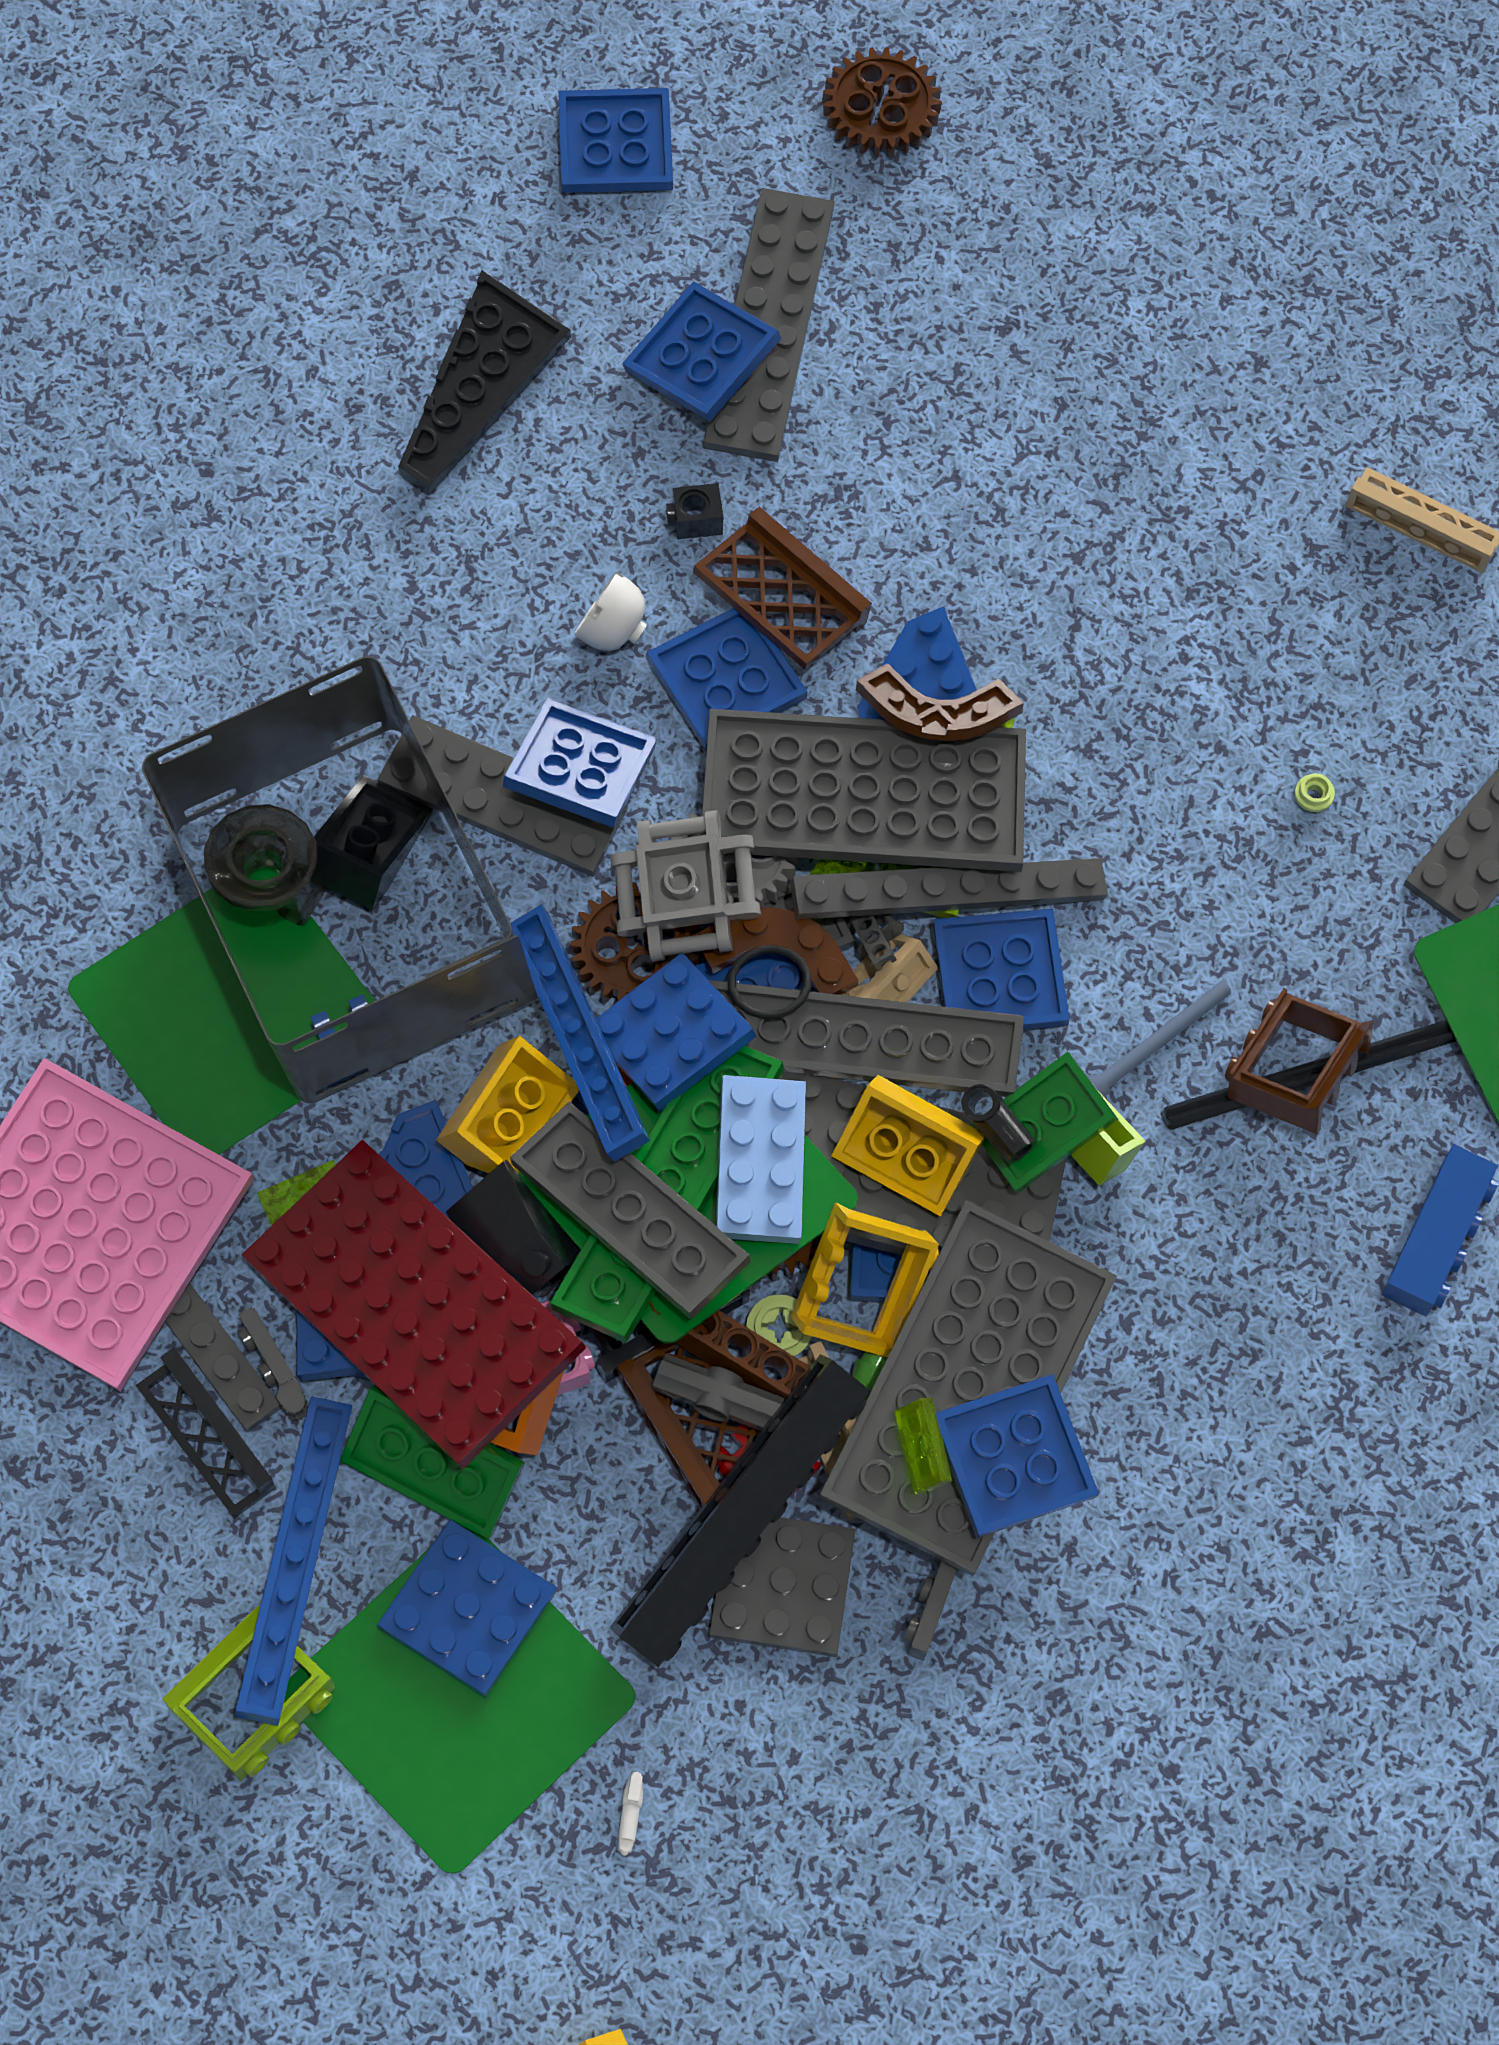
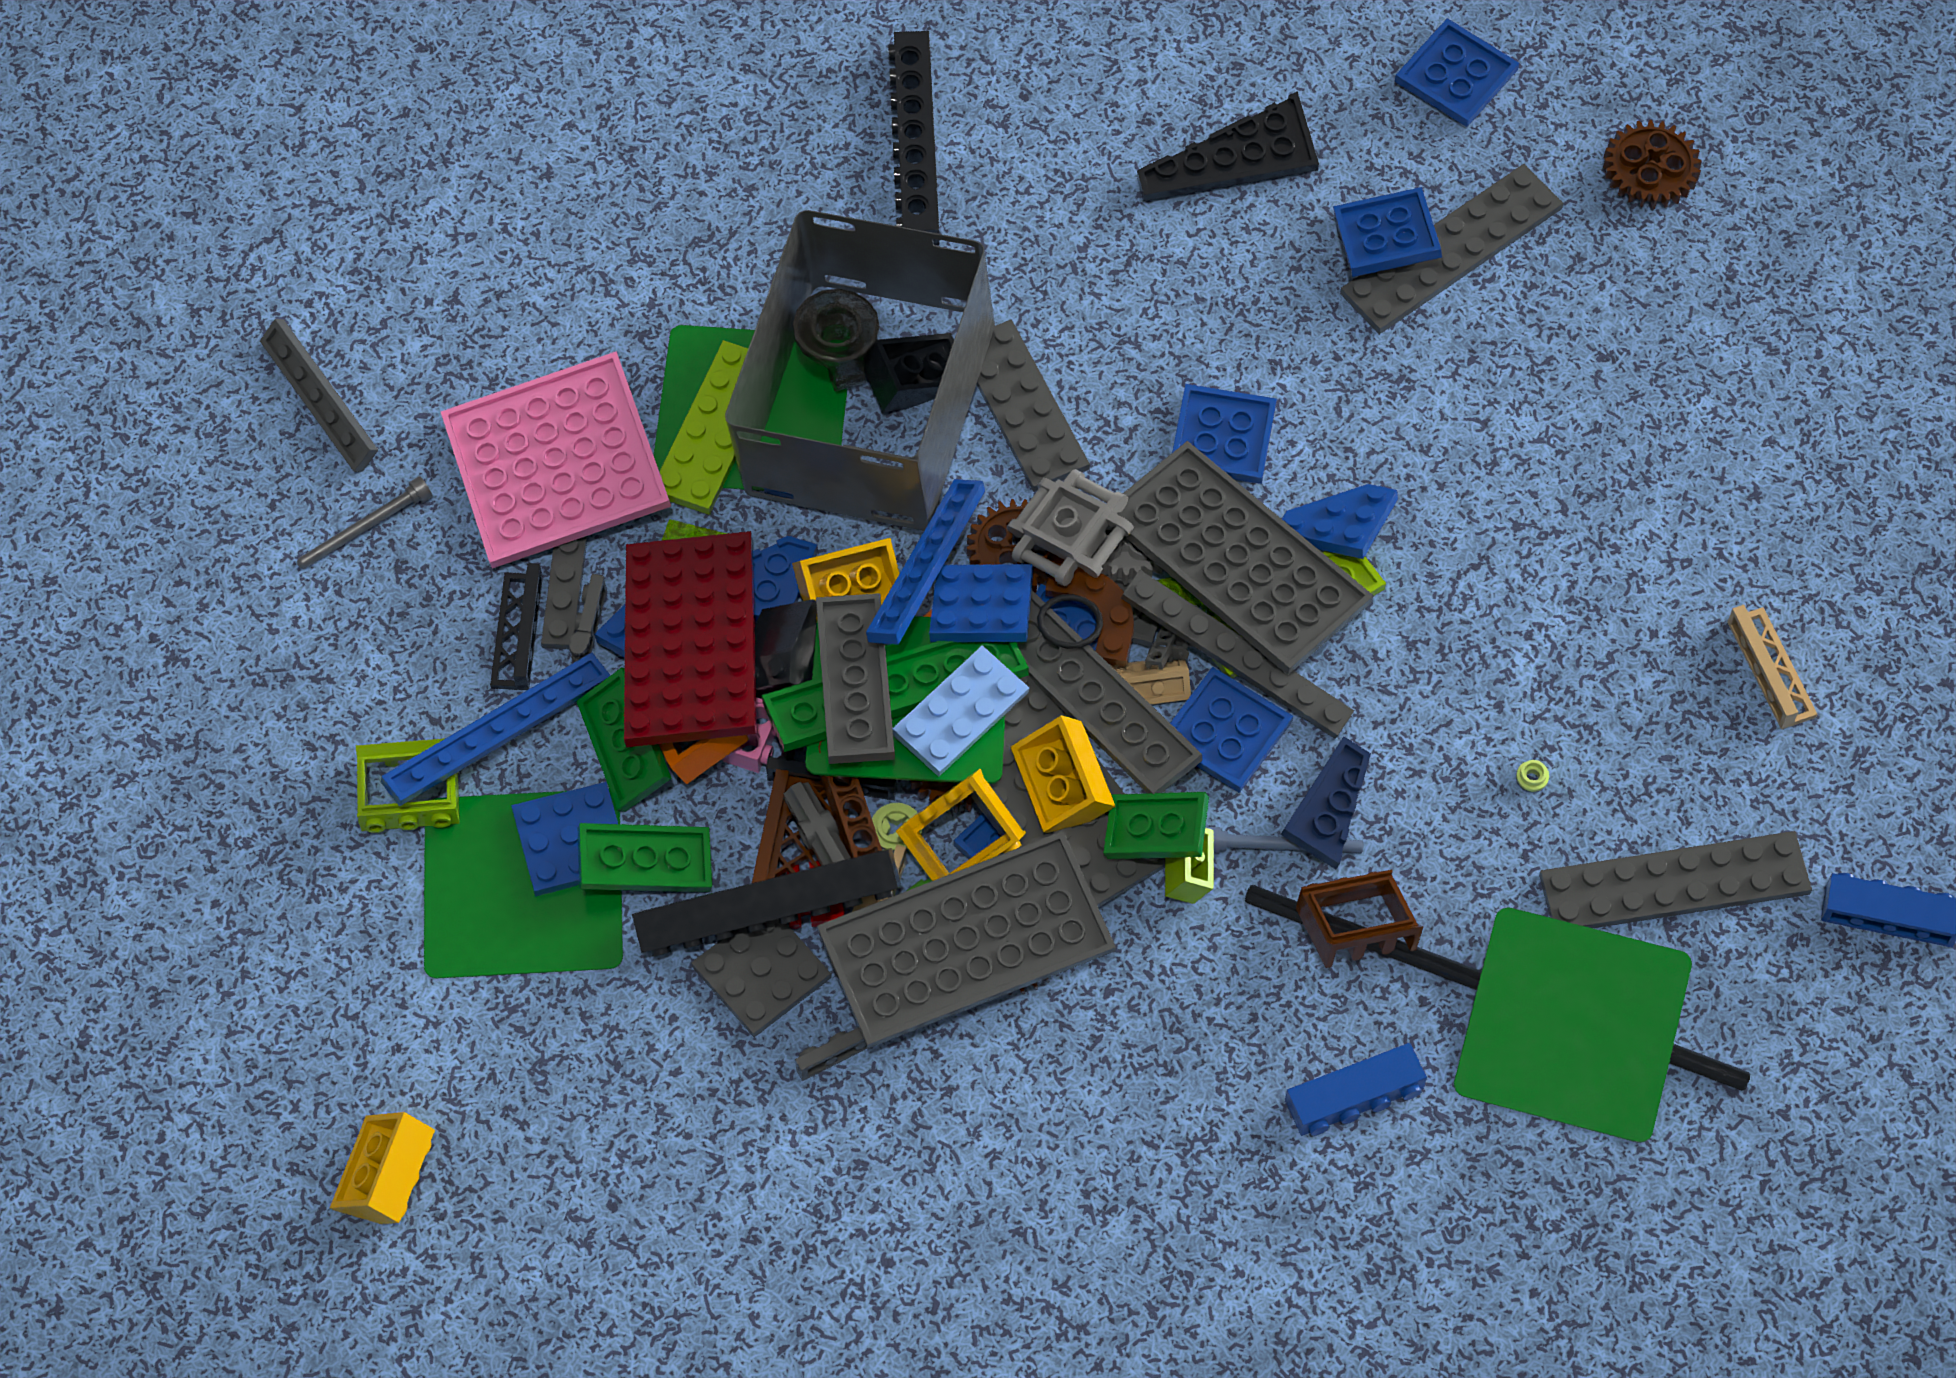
camera: 45 degrees right, 5 degrees down
(57, 501) = (914, 49): none -> black brick
(214, 1054) = (703, 447): none -> lime plate
(568, 1567) = (644, 857): none -> green plate
(579, 762) = (1081, 416): plate -> none
(614, 616) = (1184, 346): white cylinder -> none
(631, 1803) = (560, 1020): white piece -> none
(702, 498) = (1301, 334): black brick -> none
(808, 573) = (1329, 410): reddish brown fence -> none
(923, 1445) = (900, 944): clear neon green plate -> none
(933, 717) = (1321, 548): plate -> none
(999, 1124) = (1125, 801): black piece -> none
(1015, 1456) = (950, 995): blue plate -> none
(1165, 971) = (1326, 811): none -> dark blue wing

